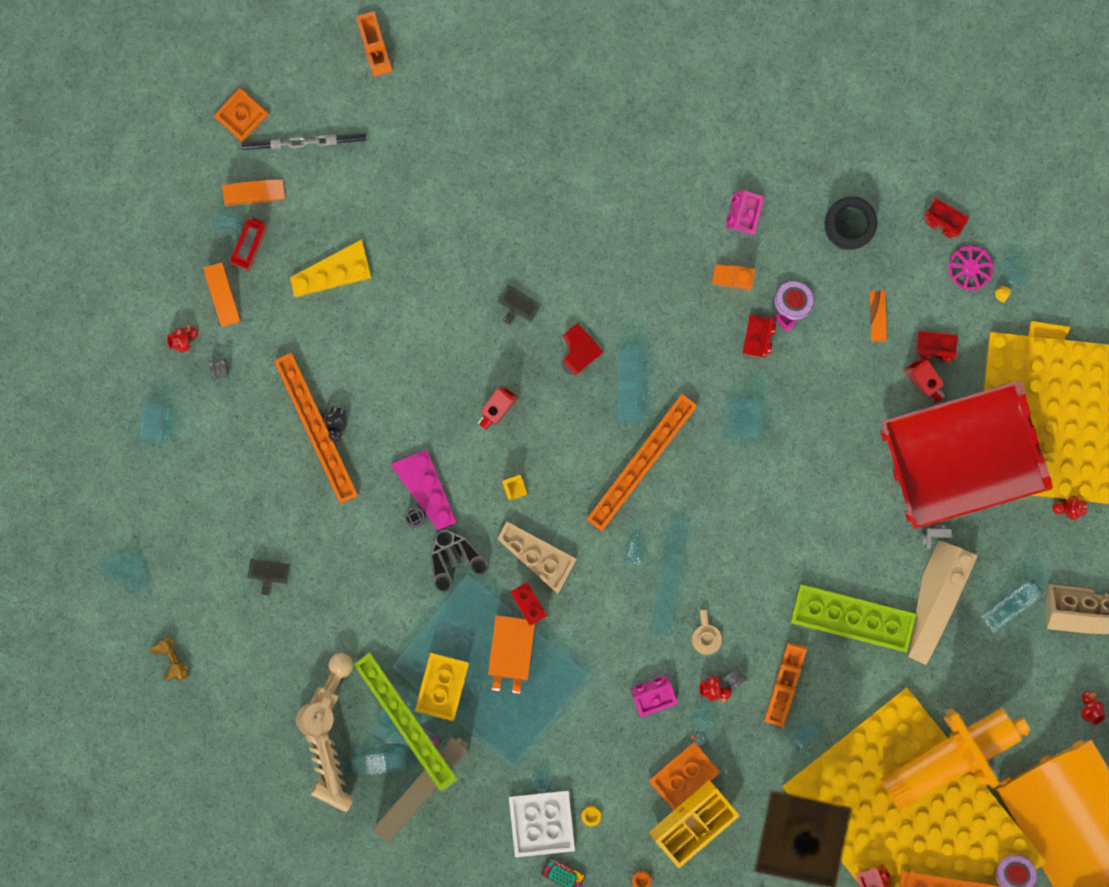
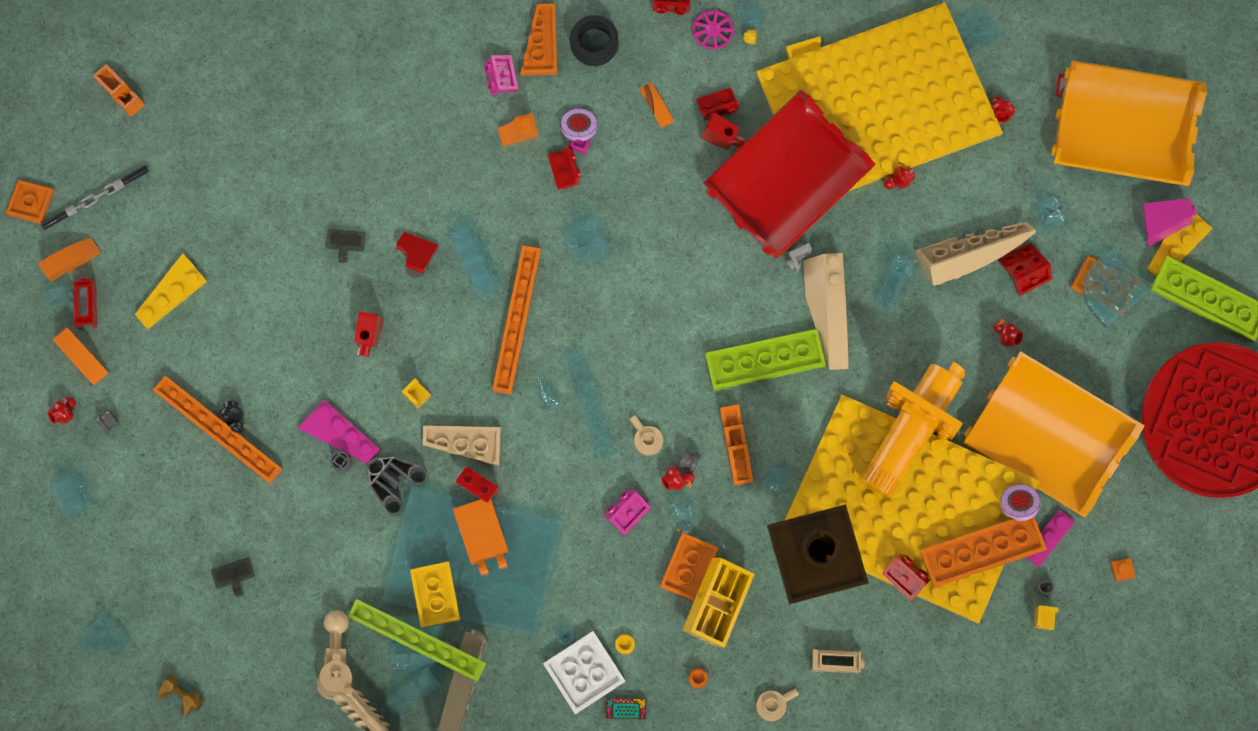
camera: 25 degrees left, 10 degrees down
(796, 205) = (542, 43): none -> orange wing

